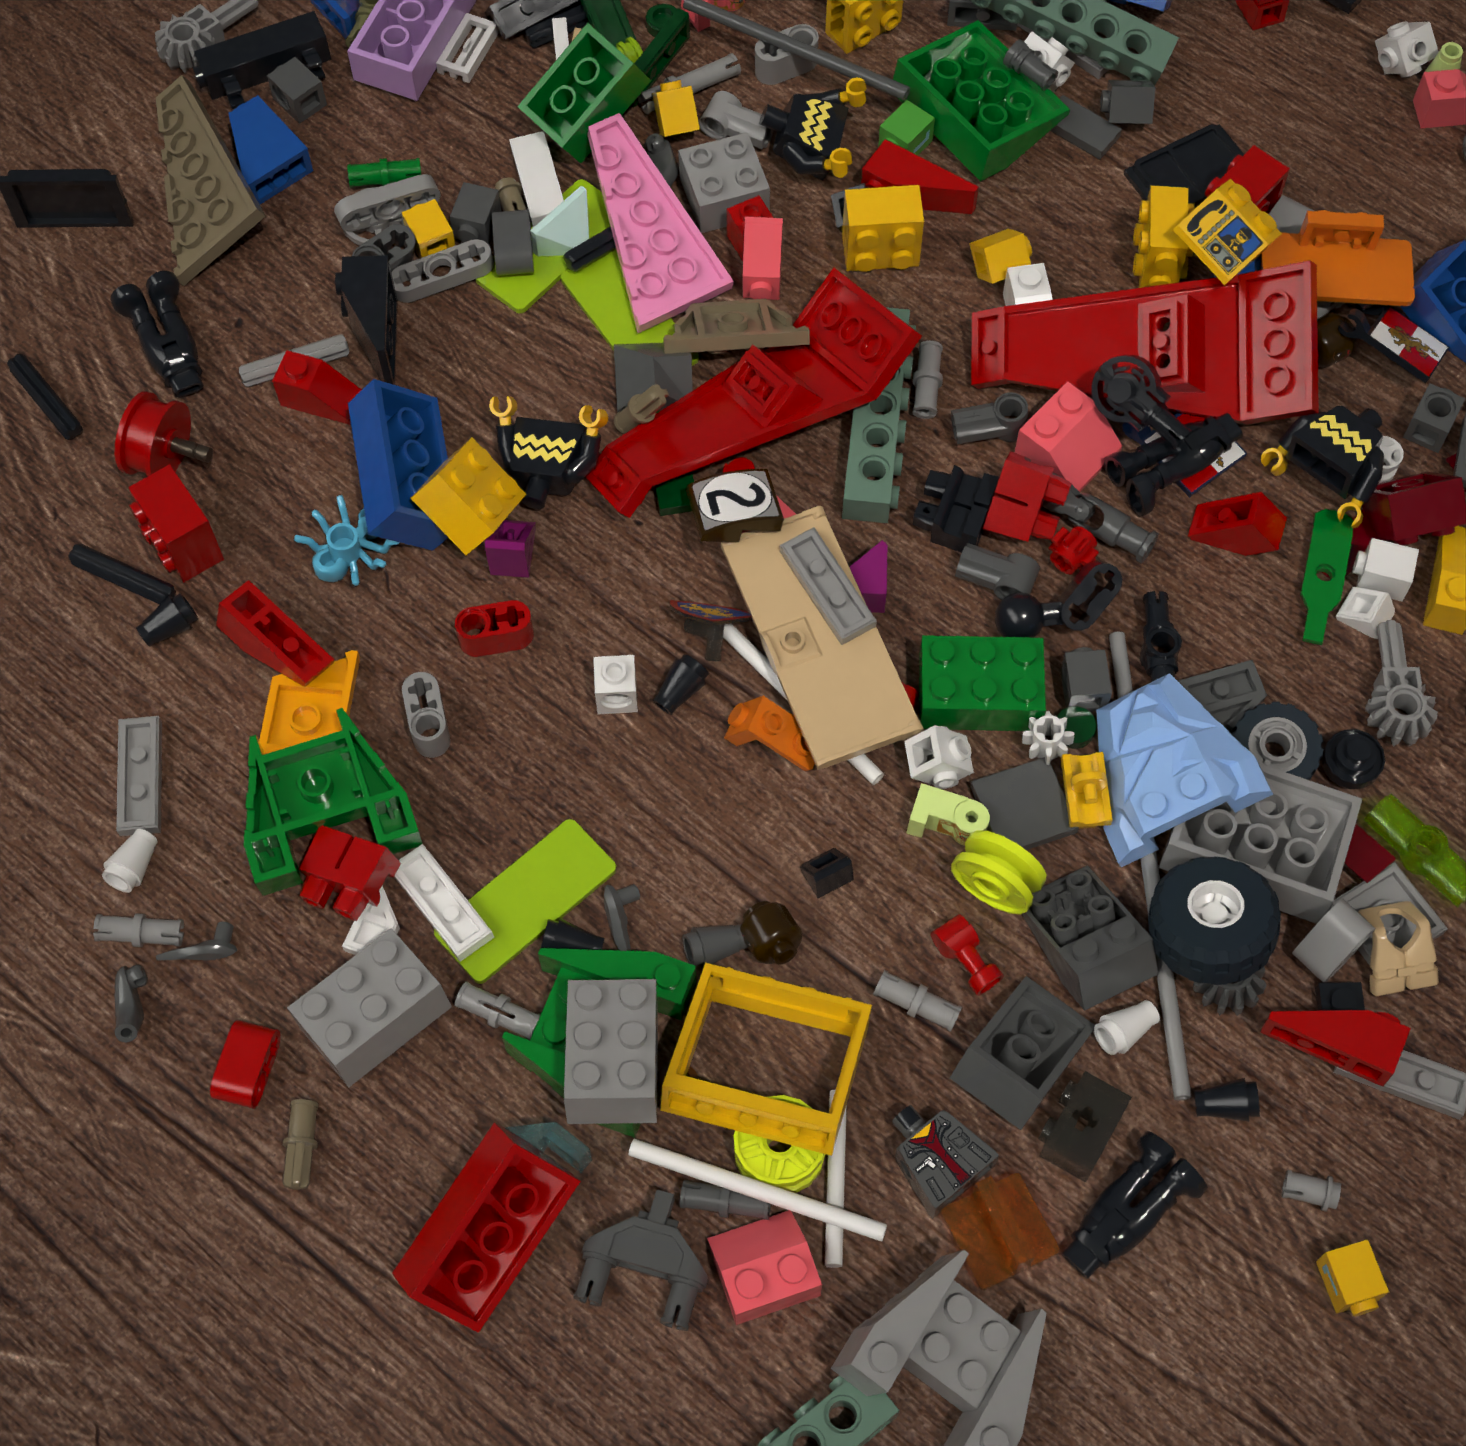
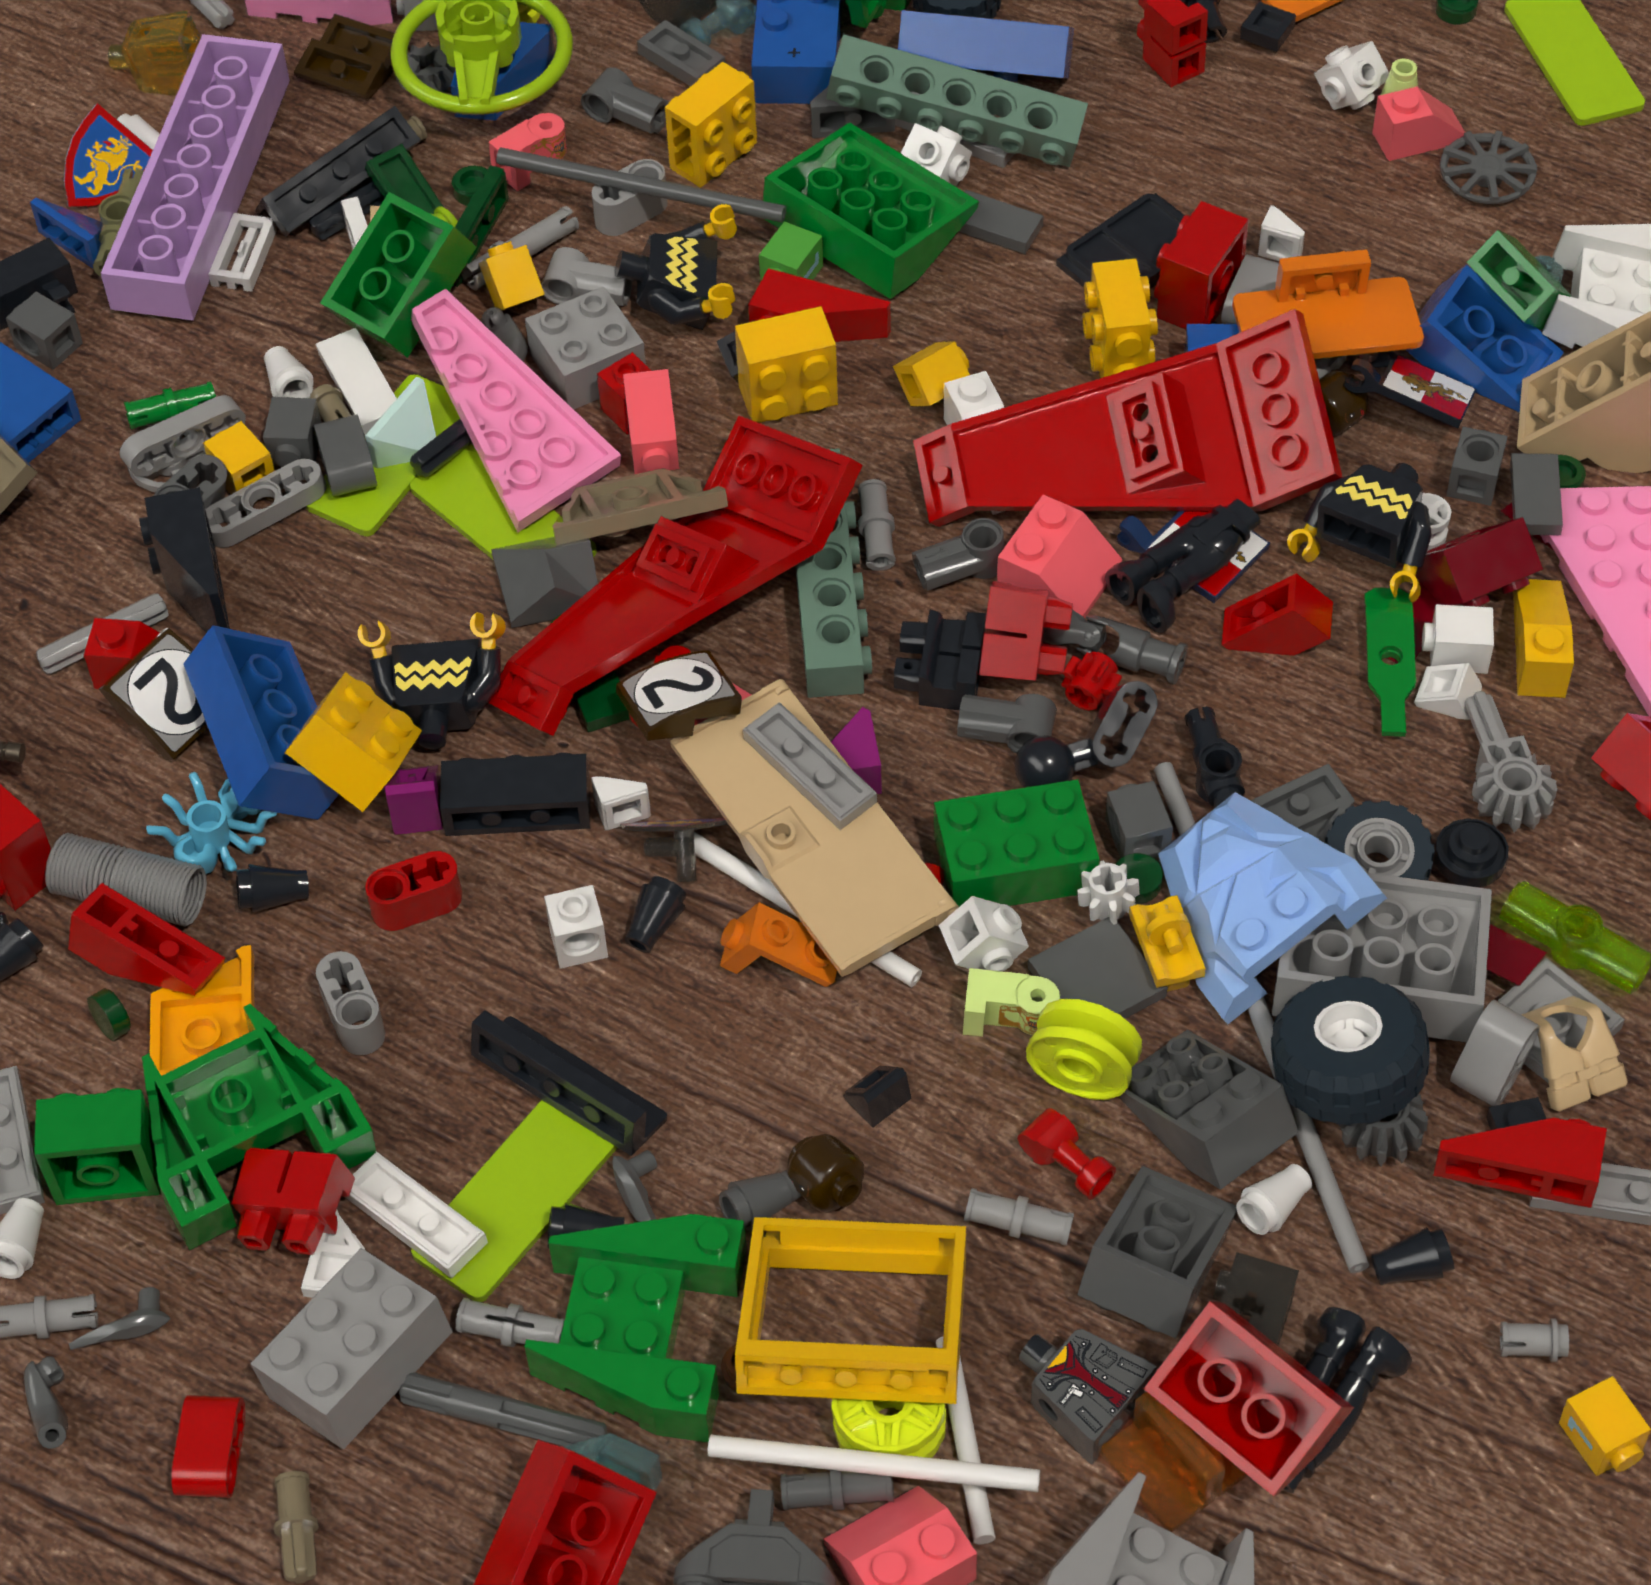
camera: 10 degrees left, 10 degrees down
(201, 799) = (96, 1146): none -> green brick
(237, 686) = (109, 1014): none -> dark green tile
(282, 579) = (155, 882): none -> light grey piece
(323, 423) = (158, 695): none -> slope
(380, 603) = (269, 886): none -> black cone
(477, 1081) = (498, 1411): none -> dark grey axle
(481, 163) = (287, 374): none -> white cone
(583, 814) = (565, 1081): none -> black panel
(590, 560) = (515, 794): none -> black brick
(611, 1051) = (665, 1330): light grey brick -> none
(641, 408) = (541, 610): dark tan axle -> none
(672, 583) = (620, 801): none -> white slope
(1024, 61) = (913, 155): dark grey pin -> none
(1066, 1202) = (1248, 1397): none -> red slope
(1128, 101) = (1044, 183): dark grey brick -> none
(1138, 397) = (1126, 495): black pin -> none
(1228, 231) = (1193, 295): yellow slope -> none
(1314, 184) = (1280, 236): none -> white slope

